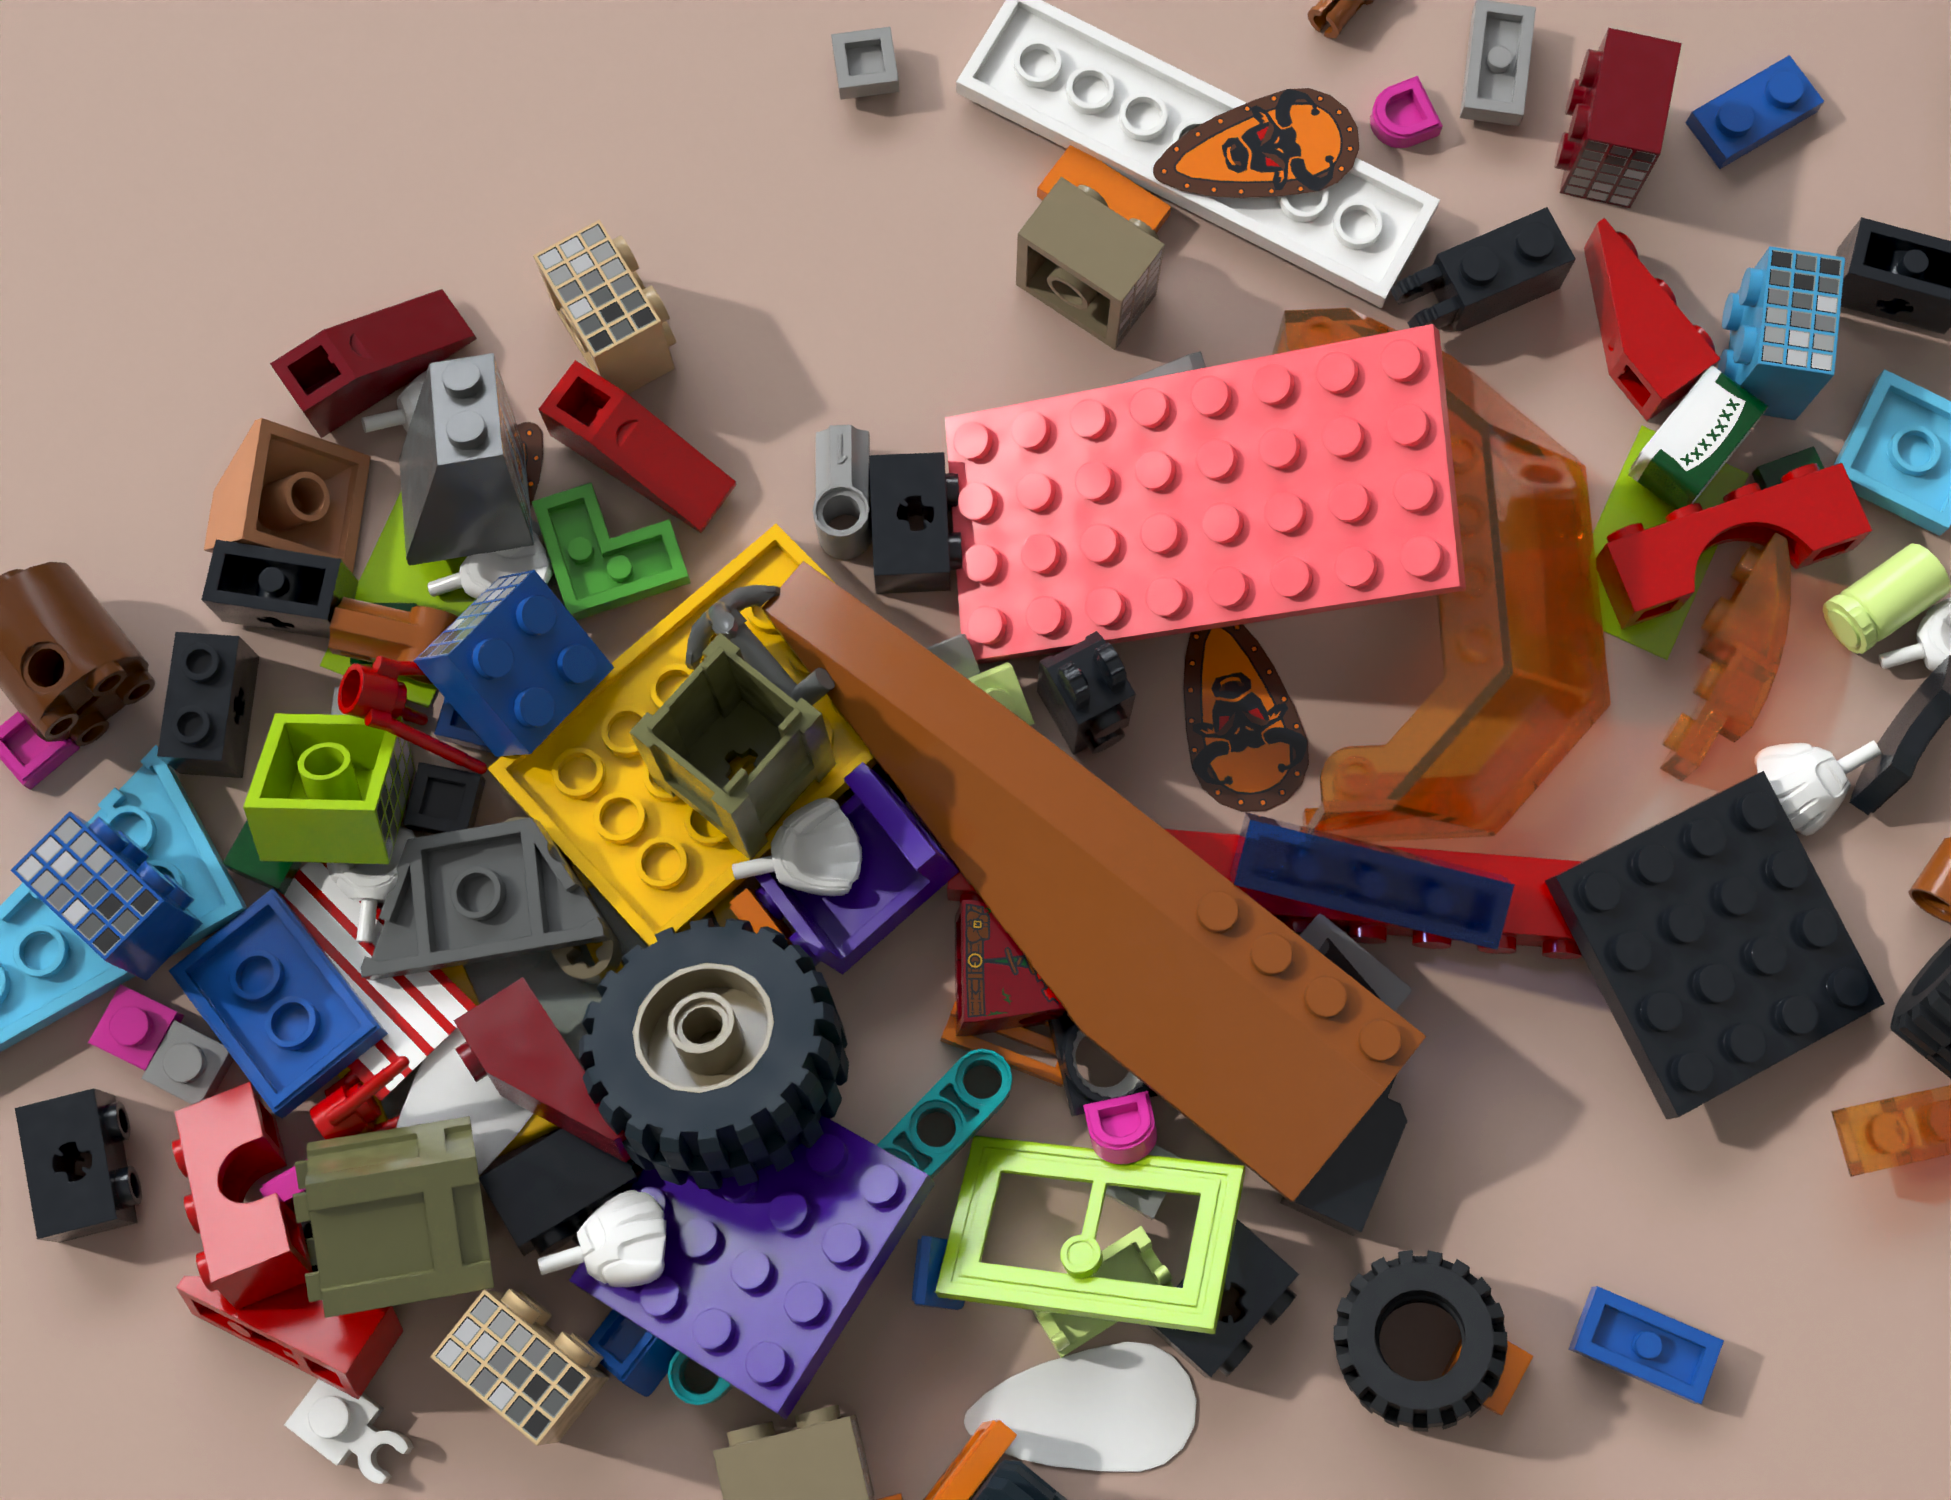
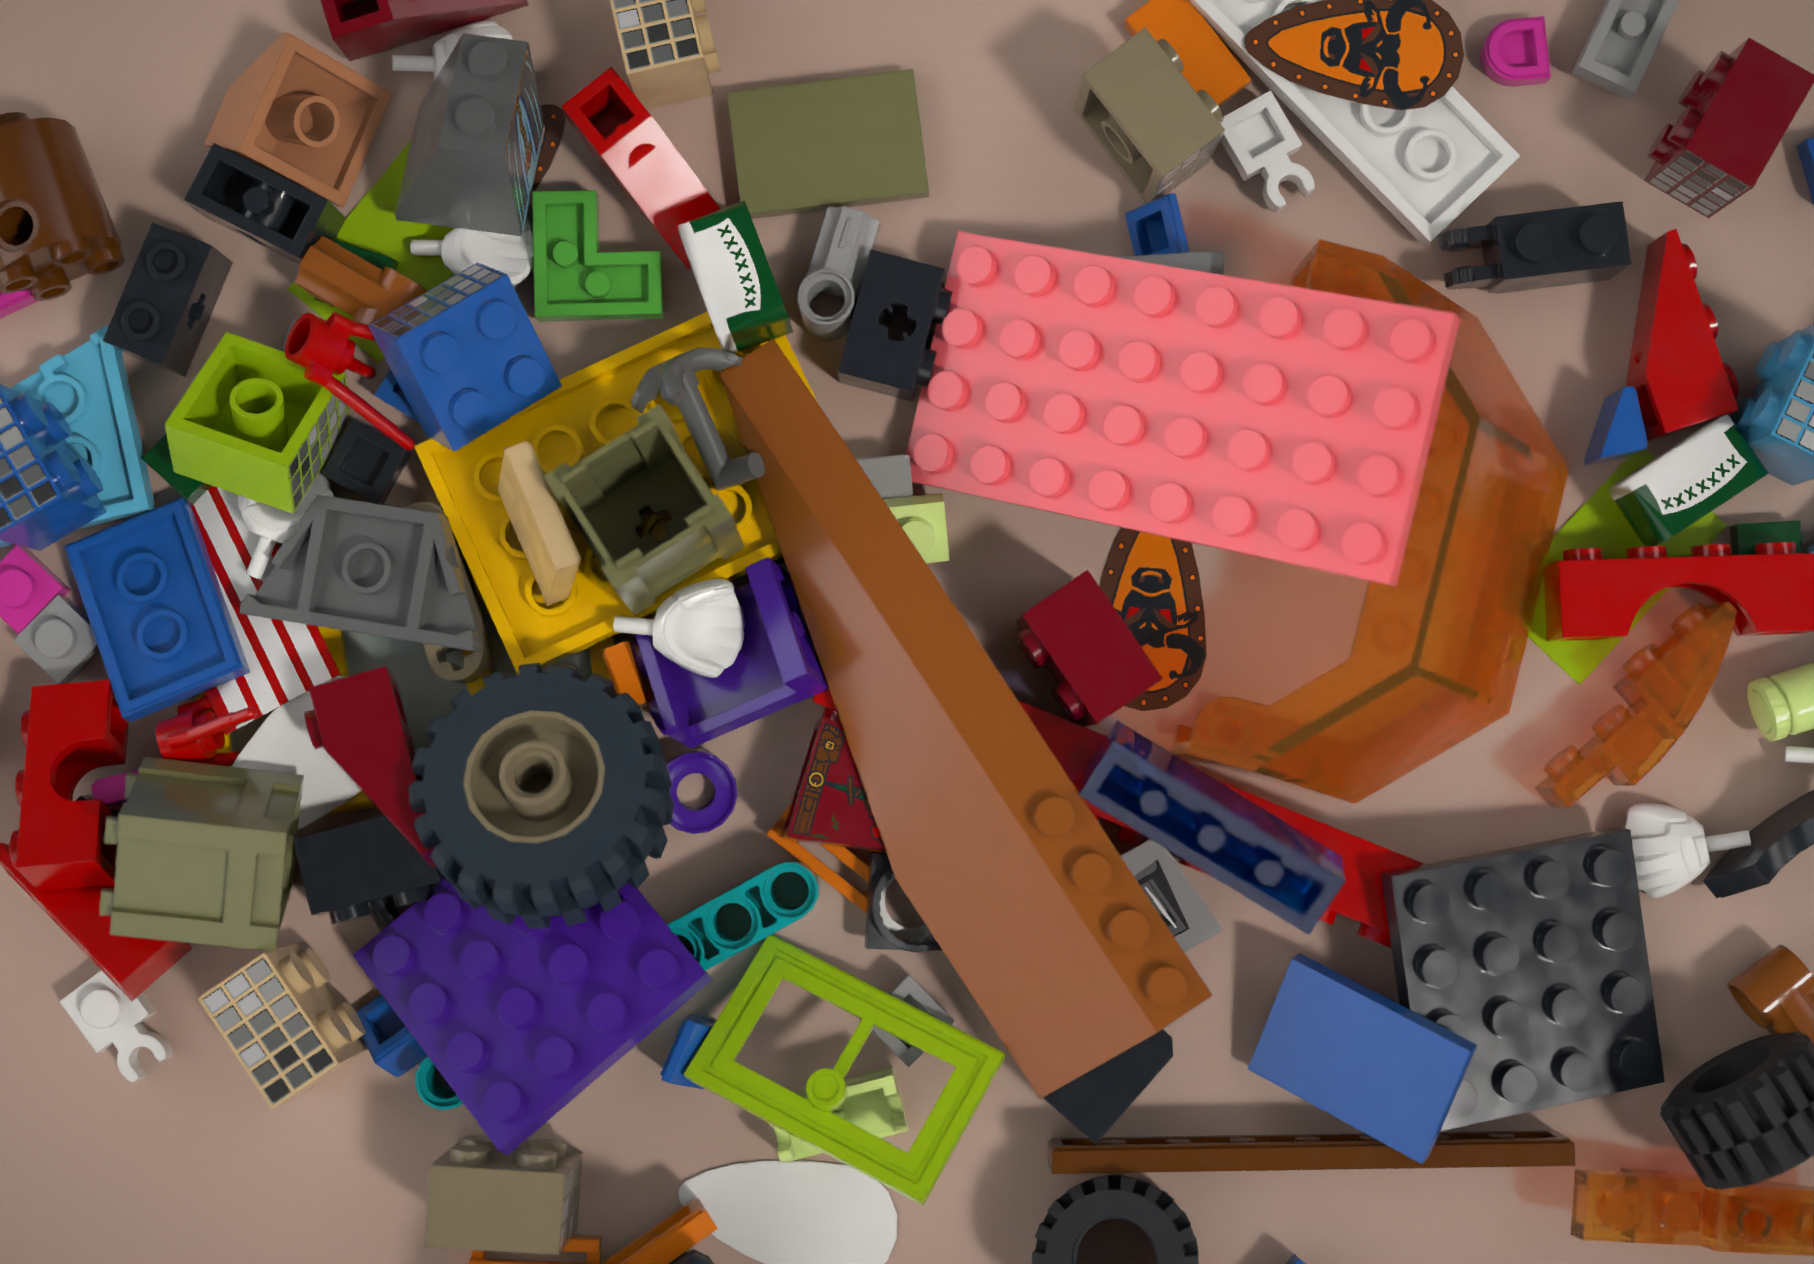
camera: 15 degrees right, 10 degrees up
(618, 1242) = (404, 940): white piece -> none
(633, 792) = (538, 522): none -> tan tile
(750, 517) = (735, 278): none -> piece
(796, 380) = (828, 144): none -> olive tile
(887, 1012) = (723, 800): none -> dark purple piece
(1087, 694) = (1006, 554): black hinge -> none
(1122, 1128) = (905, 976): dark pink tile -> none
(1127, 357) = (1157, 227): none -> blue slope
(1192, 759) = (1085, 651): none -> dark red brick
(1201, 259) = (1261, 142): none -> white plate
(1264, 1293) = (987, 1168): black brick -> none
(1569, 1178) = (1303, 1152): none -> reddish brown tile
(1588, 1064) = (1361, 1057): none -> blue tile
(1617, 413) = (1618, 428): none -> blue slope

